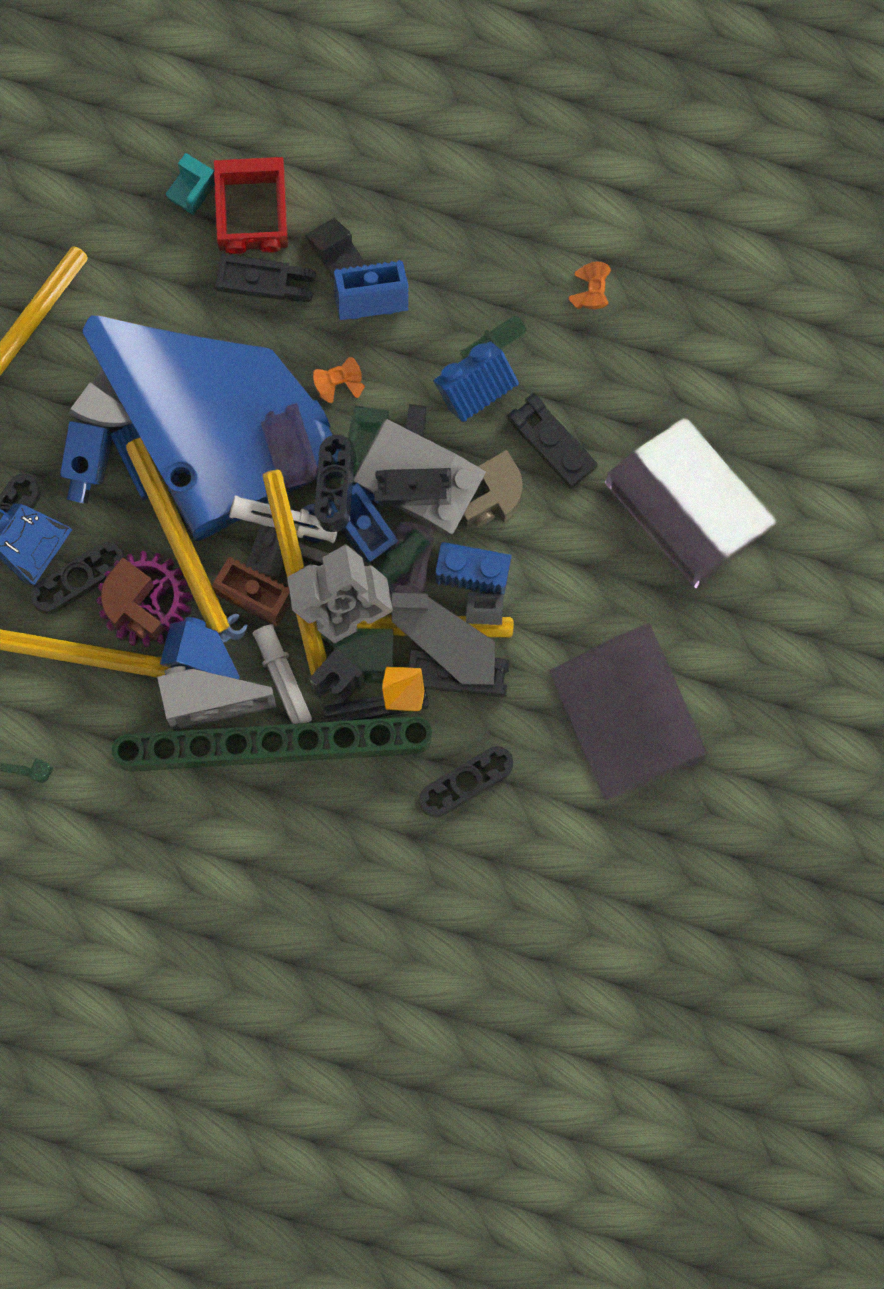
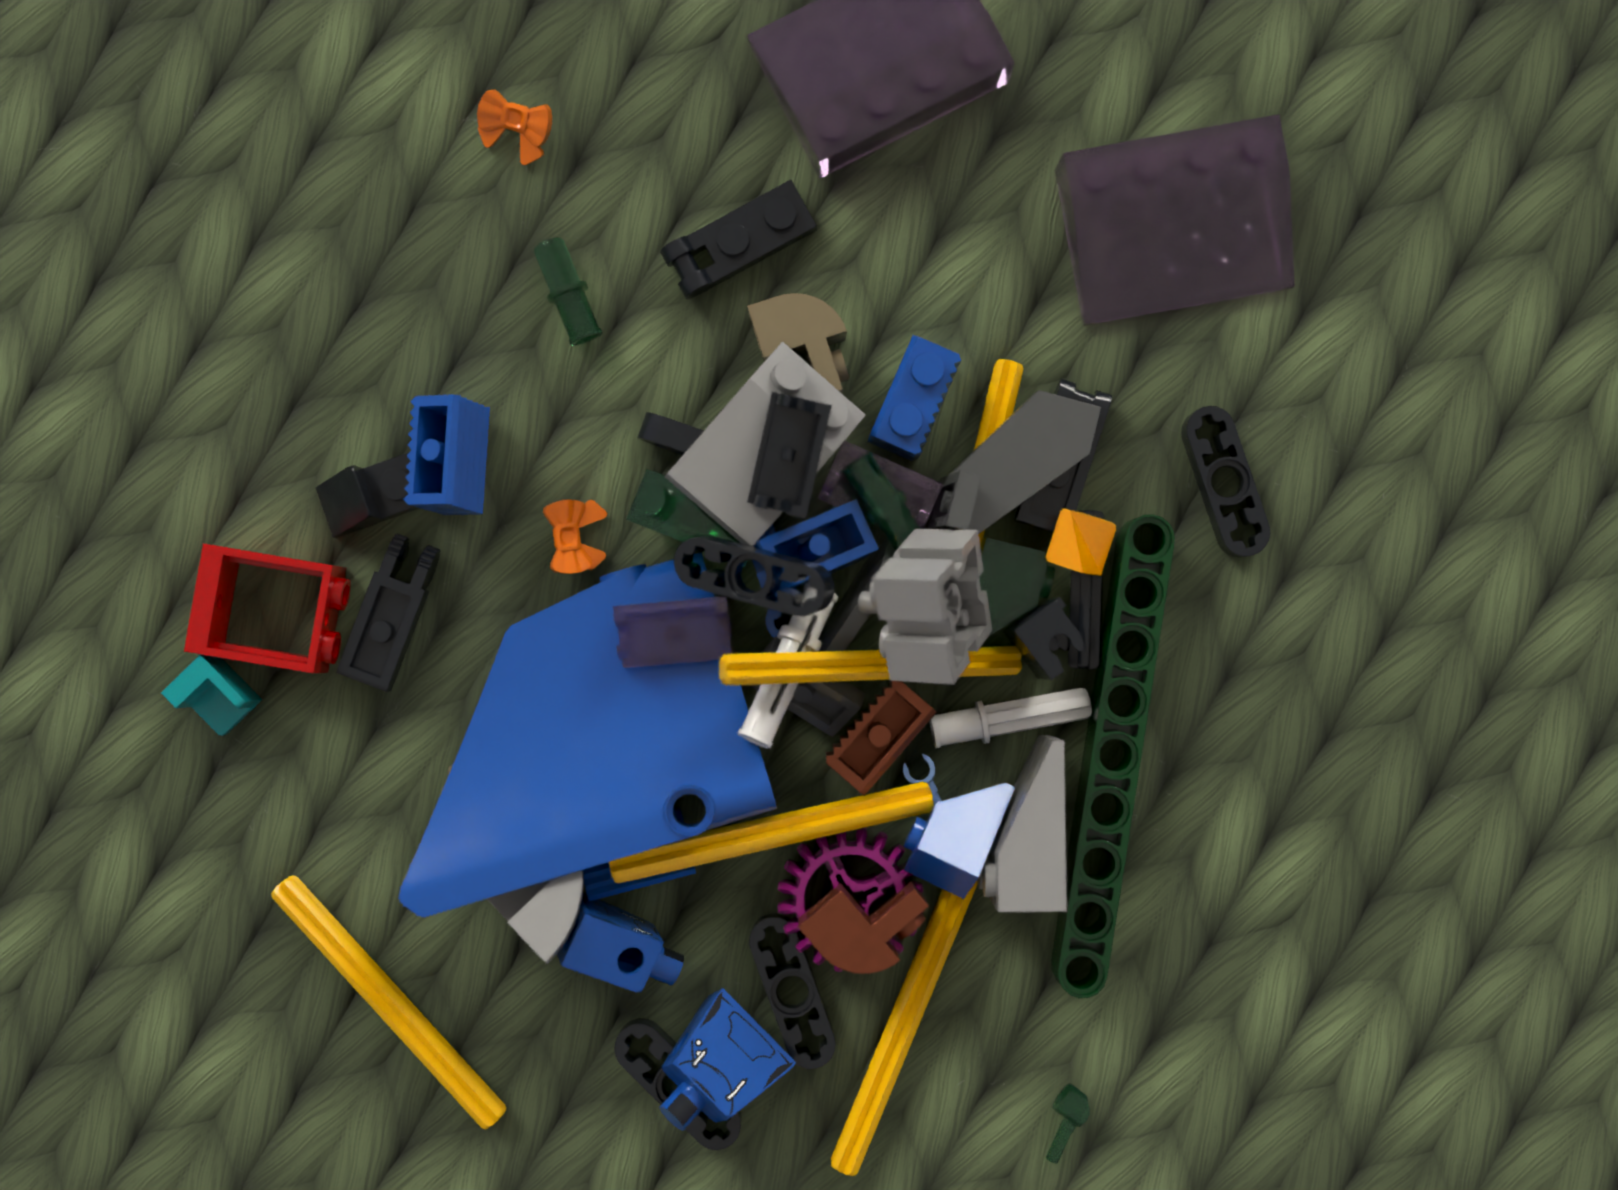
camera: 75 degrees left, 10 degrees up
(475, 381) = (626, 328): blue brick -> none
(484, 608) = (977, 395): dark grey tile -> none

